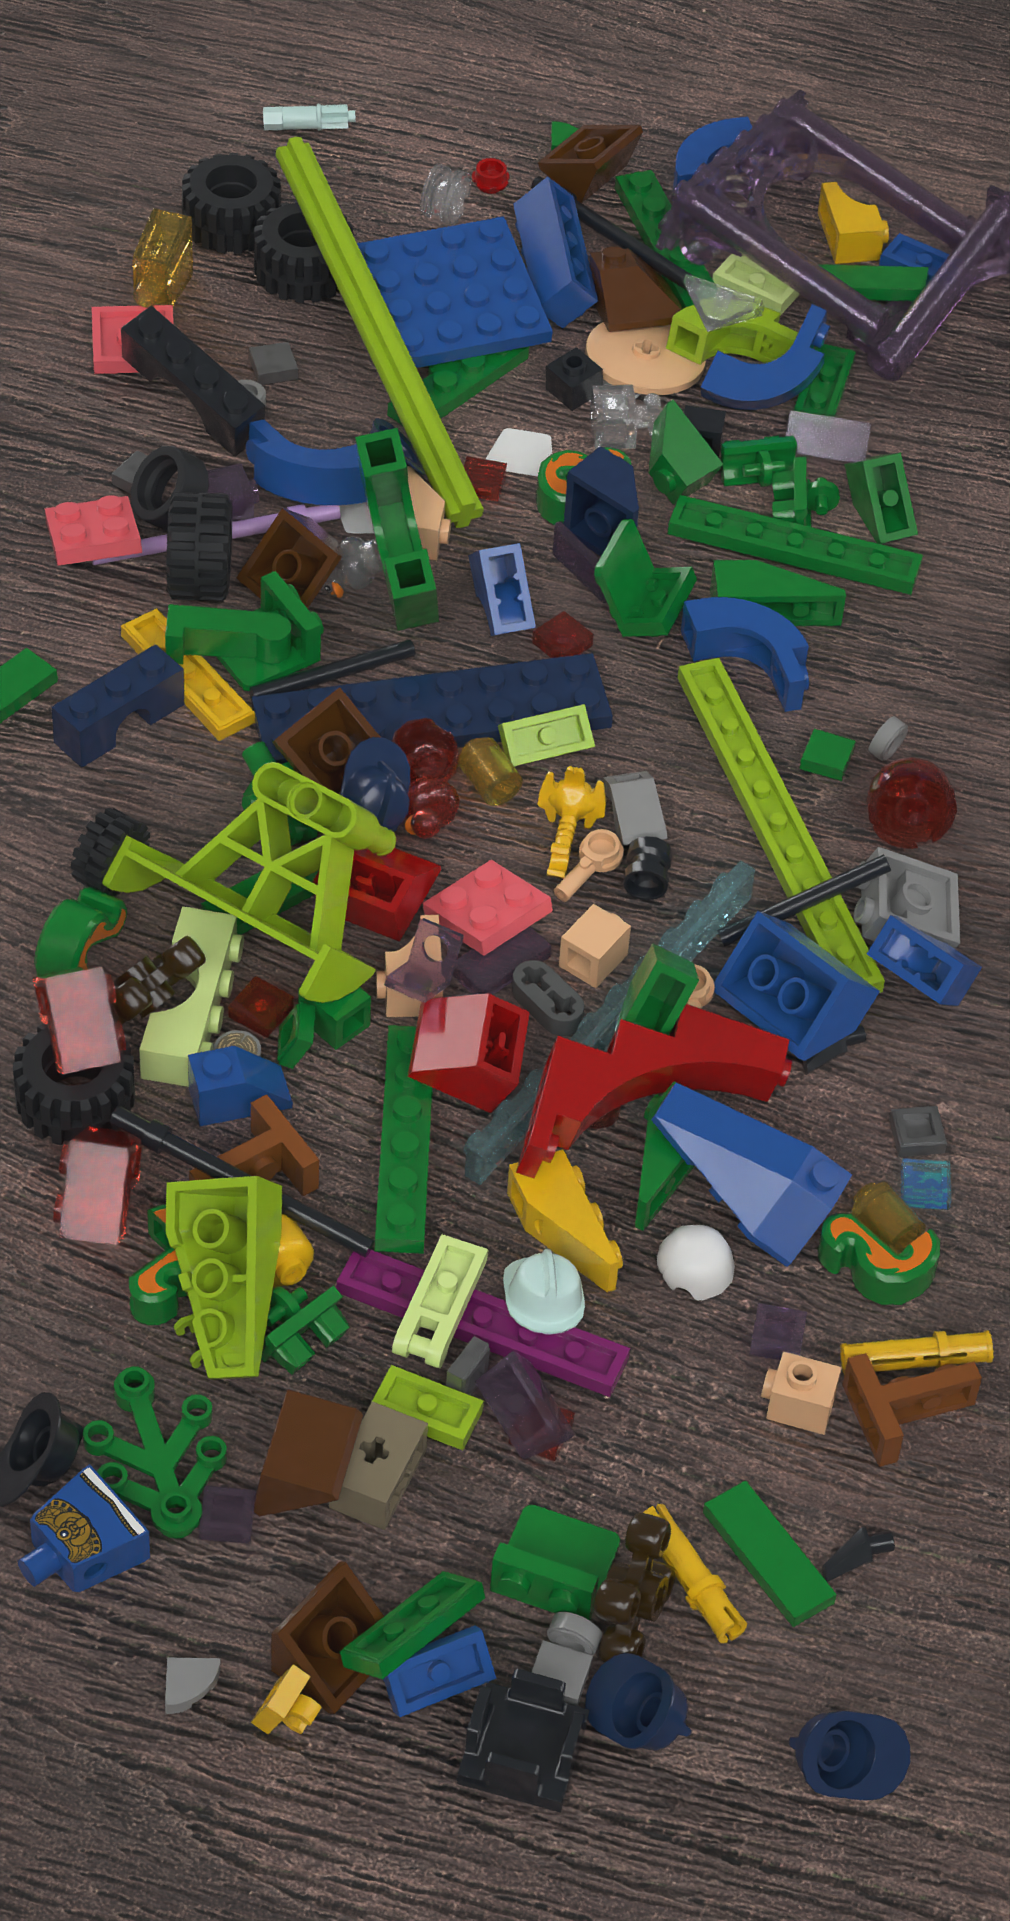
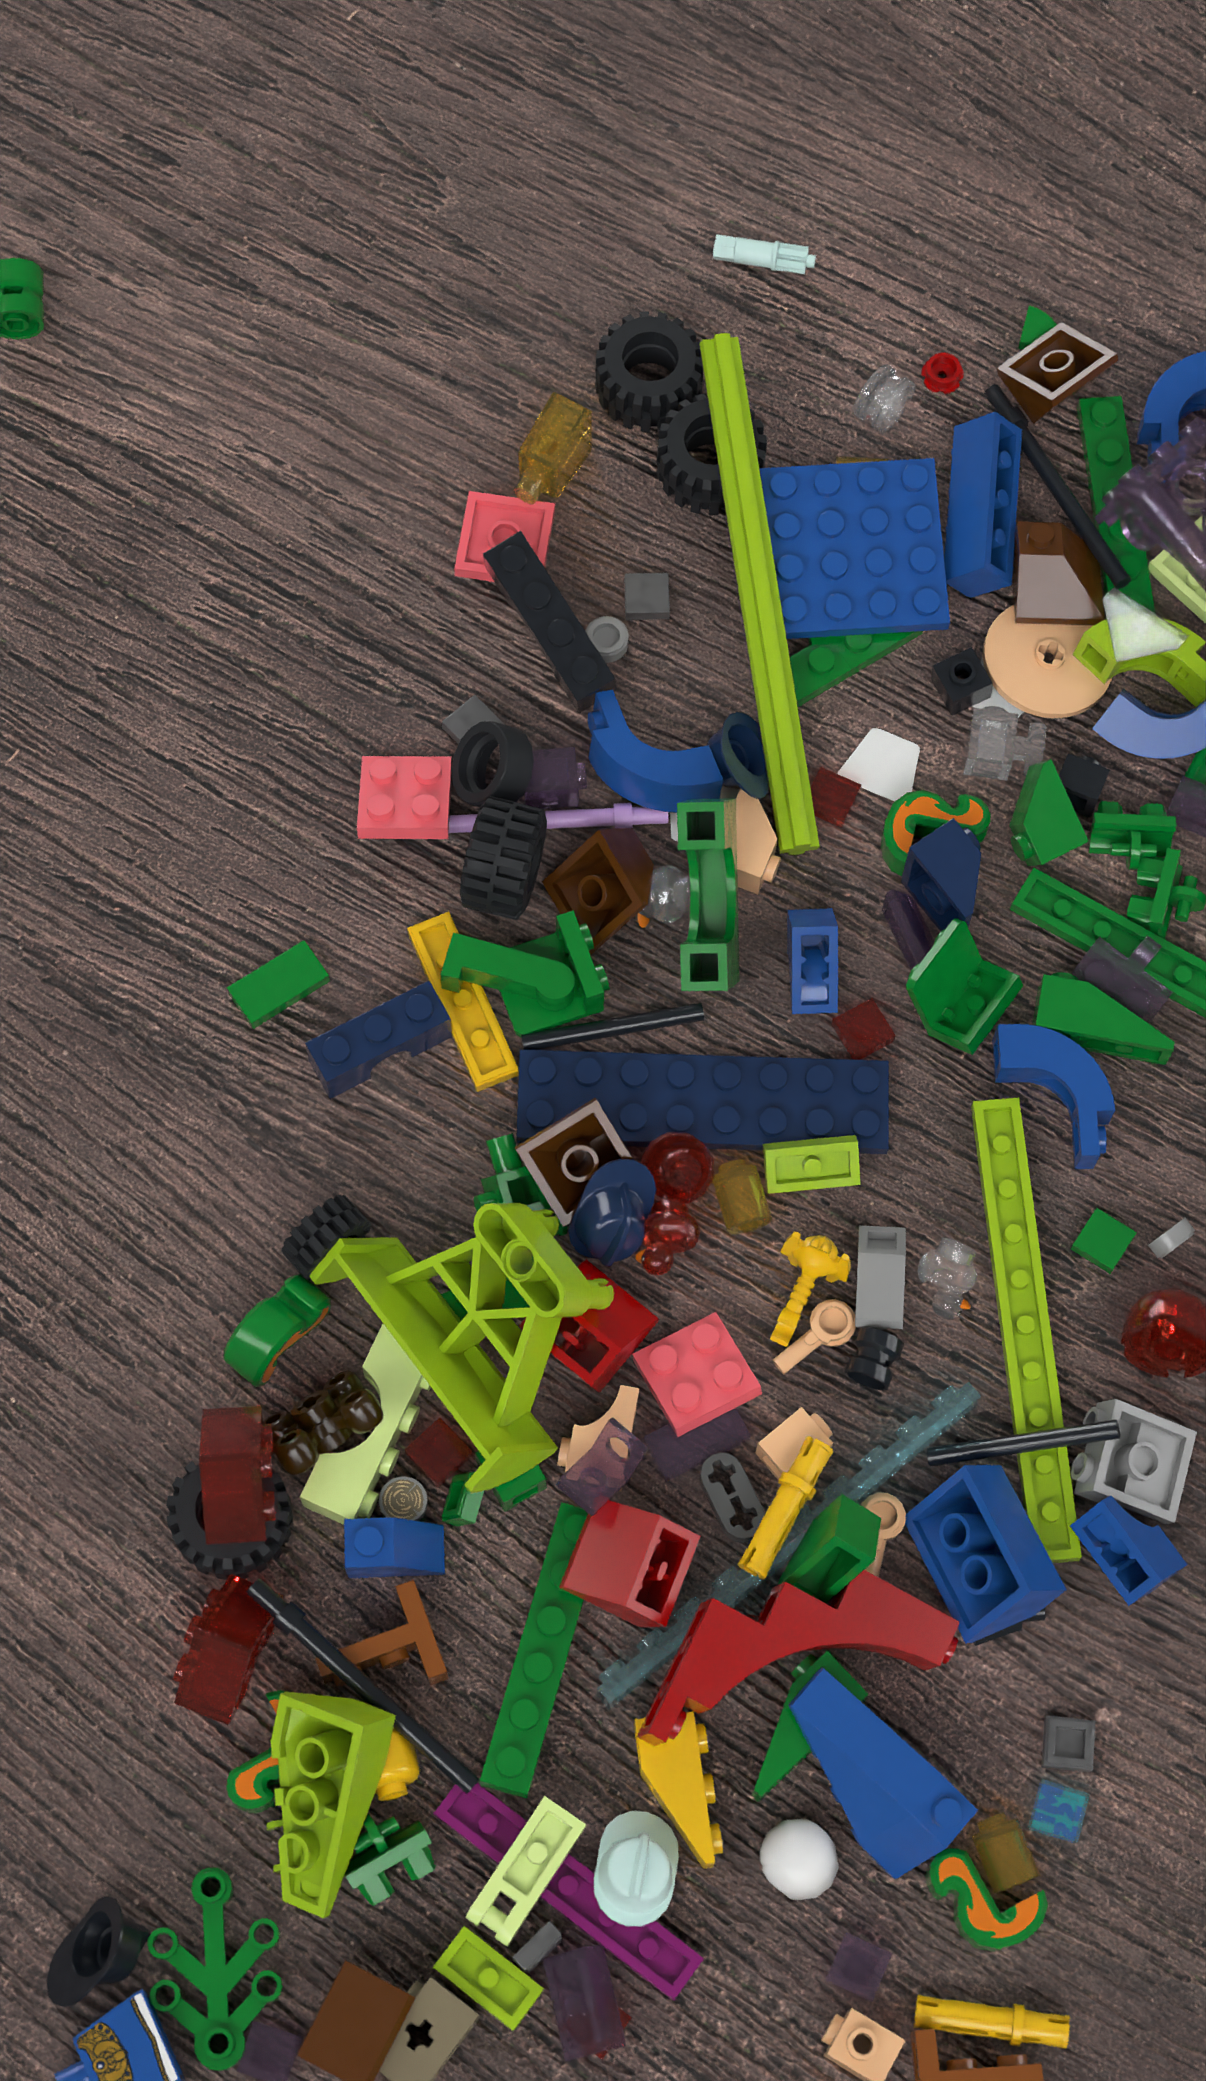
camera: 15 degrees right, 20 degrees up
(606, 960) = (795, 1489): none -> yellow pin
(697, 790) = (952, 1269): none -> clear animal
(787, 553) = (1124, 977): none -> clear purple plate

